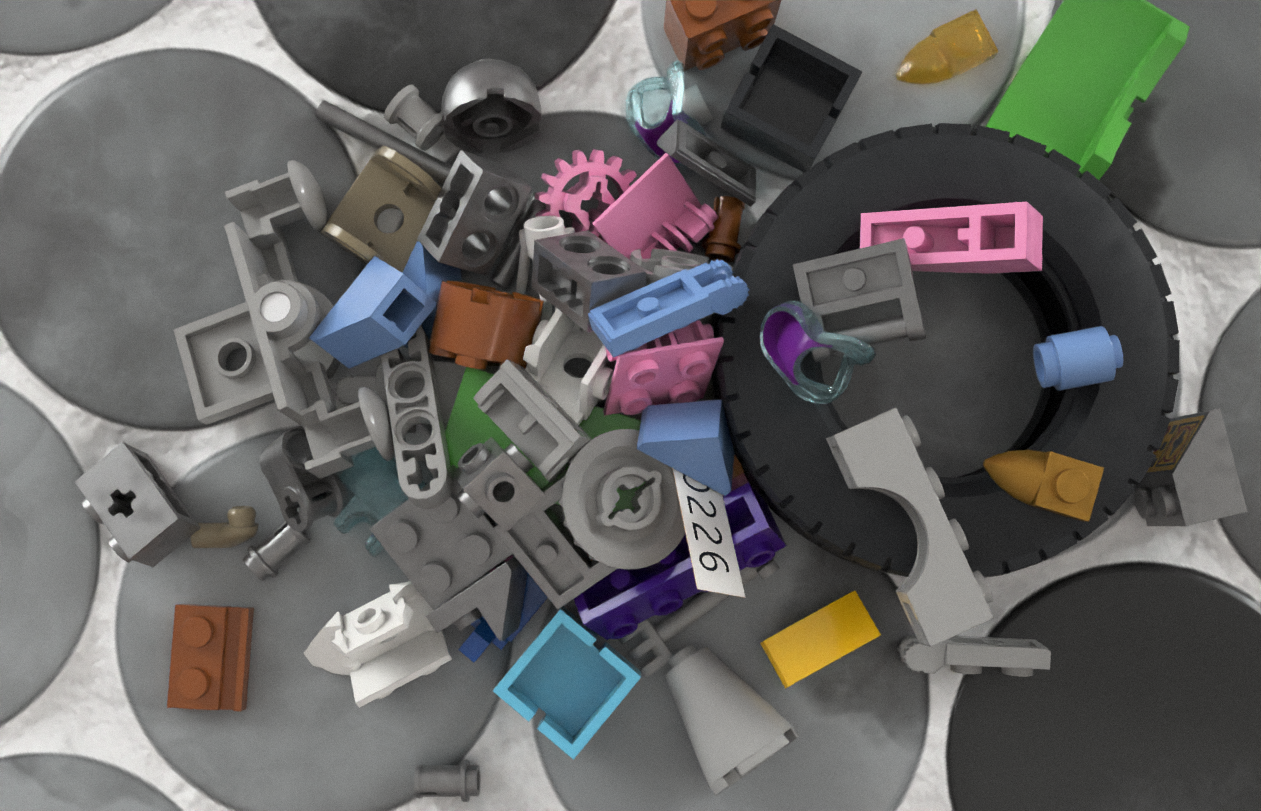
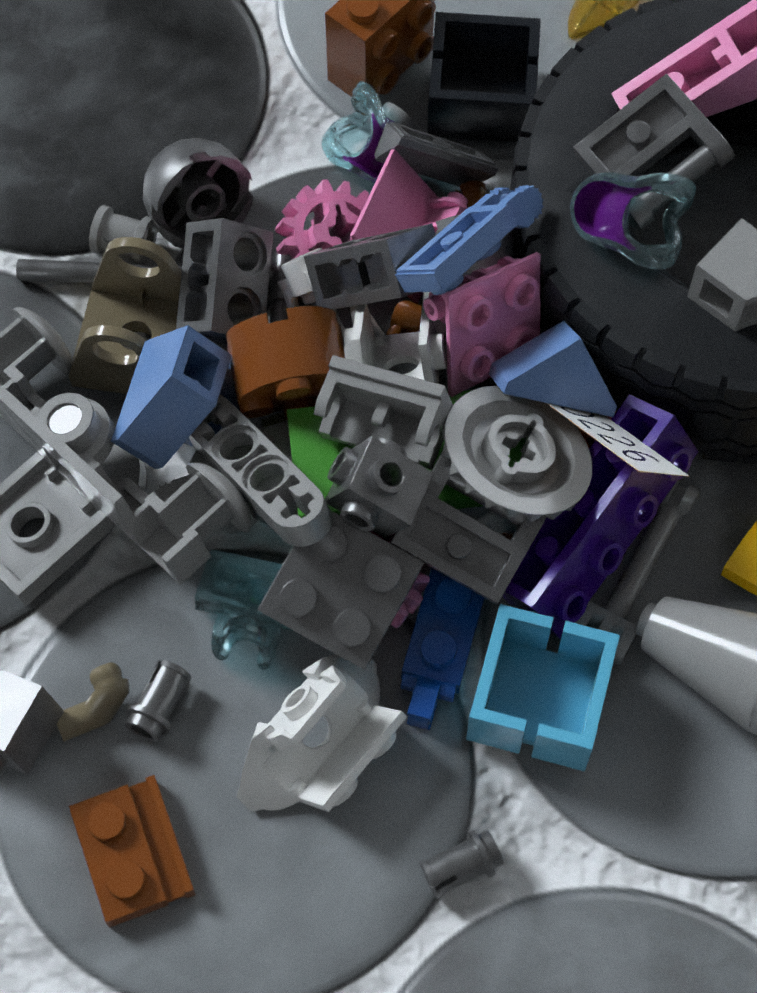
camera: 20 degrees left, 20 degrees down
(296, 486) = (152, 608): flat silver piece -> none
(494, 597) = (420, 617): flat silver slope -> none

